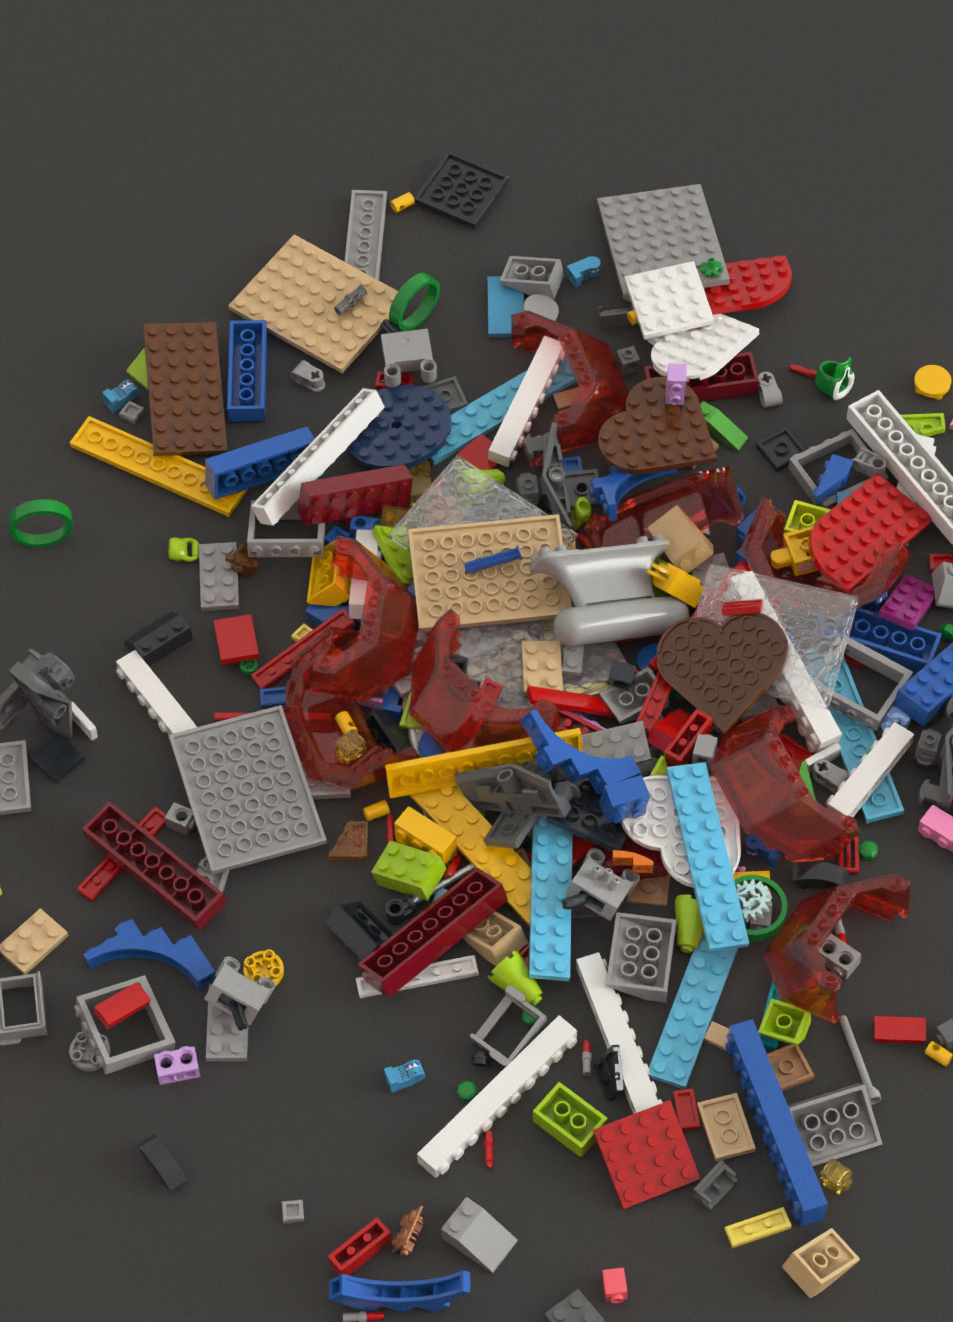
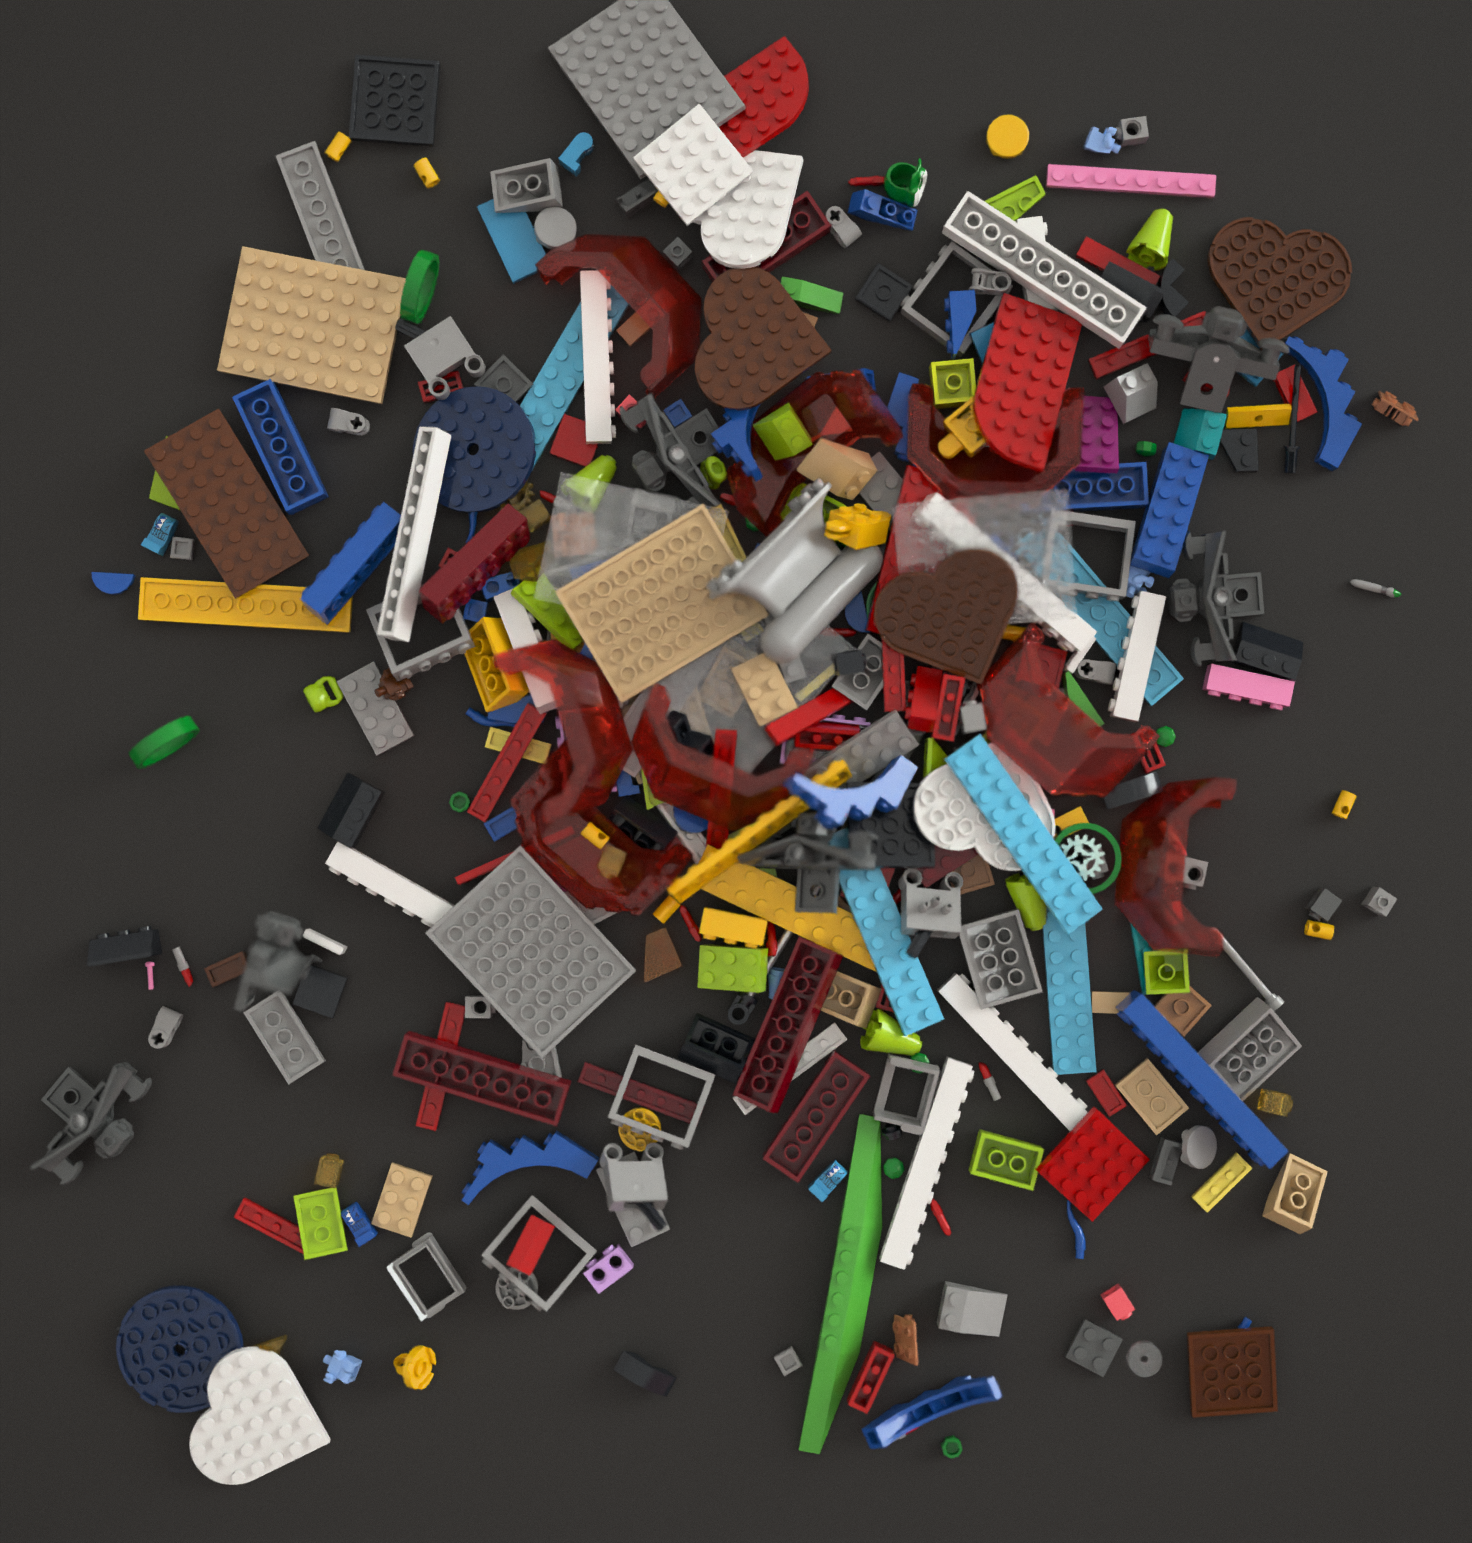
camera: 25 degrees left, 30 degrees up
(65, 414) = (112, 582): none -> blue tile
(236, 639) = (432, 778): red tile -> none
(280, 943) = (638, 1092): none -> dark red tile
(297, 613) = (483, 720): none -> blue animal
(317, 924) = (638, 1127): none -> light grey window
(341, 308) = (349, 314): dark grey pin -> none
(374, 1172) = (848, 1285): none -> bright green wedge
(420, 1015) = (815, 1116): none -> dark red brick
(460, 242) = (426, 172): none -> yellow piece
(493, 560) = (660, 593): blue axle -> none
(607, 1213) = (1080, 1243): none -> blue animal
(610, 1072) = (1022, 1094): black wing -> none
(624, 799) = (925, 823): blue brick -> none
(638, 862) = (957, 870): orange slope -> none
(648, 501) = (783, 433): none -> lime slope
(675, 384) = (754, 284): lavender brick -> none
(711, 267) = (720, 101): green plant -> none
(742, 607) = (949, 545): red tile -> none
(749, 1182) = (1198, 1147): none -> light grey tile
(806, 392) = (881, 210): none -> blue slope
(899, 1030) = (1273, 922): red piece -> none

